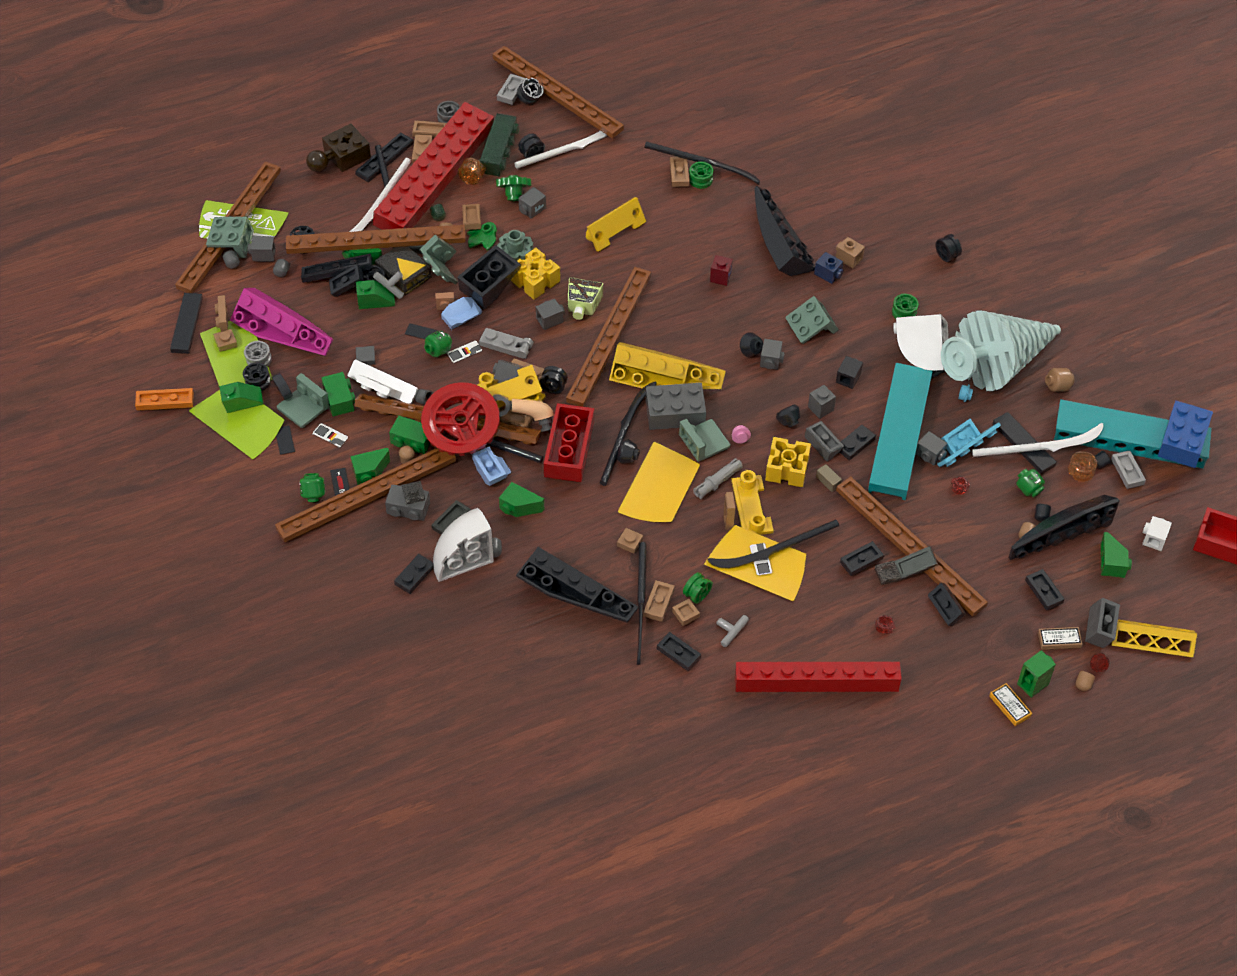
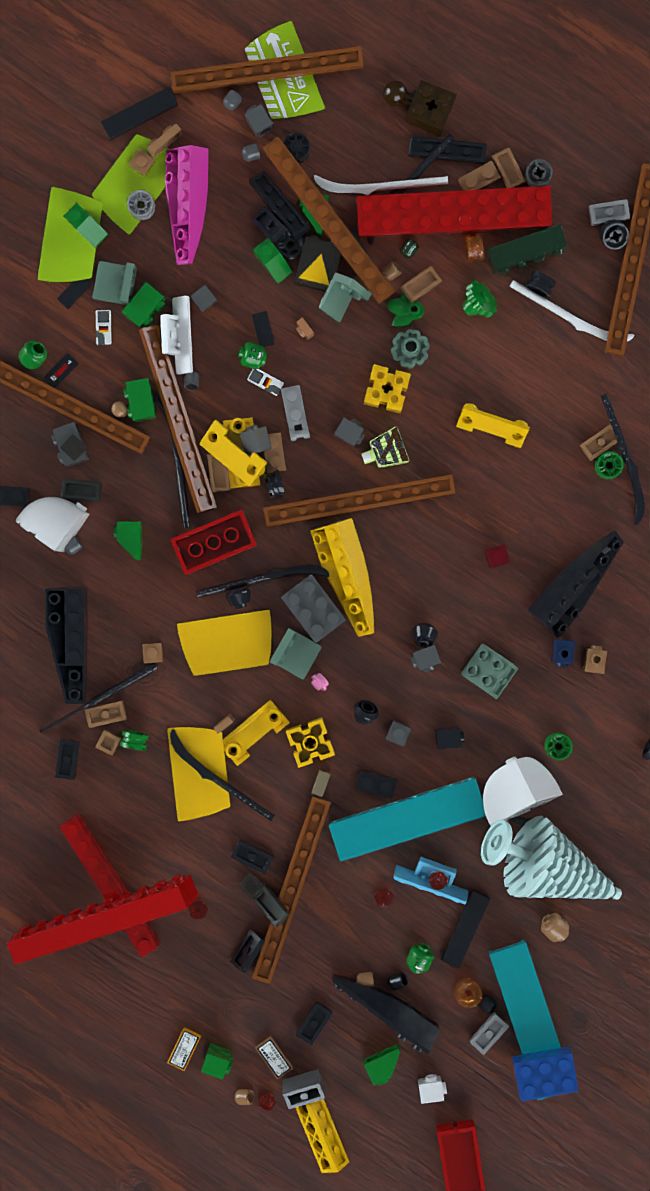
camera: 60 degrees right, 35 degrees up
(164, 399) = (45, 158): orange plate -> none
(231, 232) = (254, 80): sand green bracket -> none
(257, 375) = (111, 217): black wheel -> none
(282, 386) = (119, 252): black beam -> none
(369, 464) = (85, 386): green slope -> none
(389, 284) = (289, 269): light grey piece -> none
(460, 312) = (303, 353): light blue slope -> none
(475, 402) = (159, 417): red gear -> none
(488, 276) = (352, 352): black slope -> none
(490, 466) = (152, 491): light blue slope -> none
(532, 202) = (471, 329): dark grey brick -> none
(538, 410) = (228, 494): light nougat piece -> none
(711, 482) = (261, 689): light grey pin -> none
(732, 630) = (117, 789): light grey piece -> none
(762, 566) = (195, 778): sticker -> none
(823, 440) = (358, 757): dark grey slope -> none
(844, 680) = (103, 918): none -> red brick
(931, 448) = (405, 855): dark grey brick -> none
(972, 430) = (438, 884): none -> clear red plate
(1051, 445) = (470, 958): white piece -> none

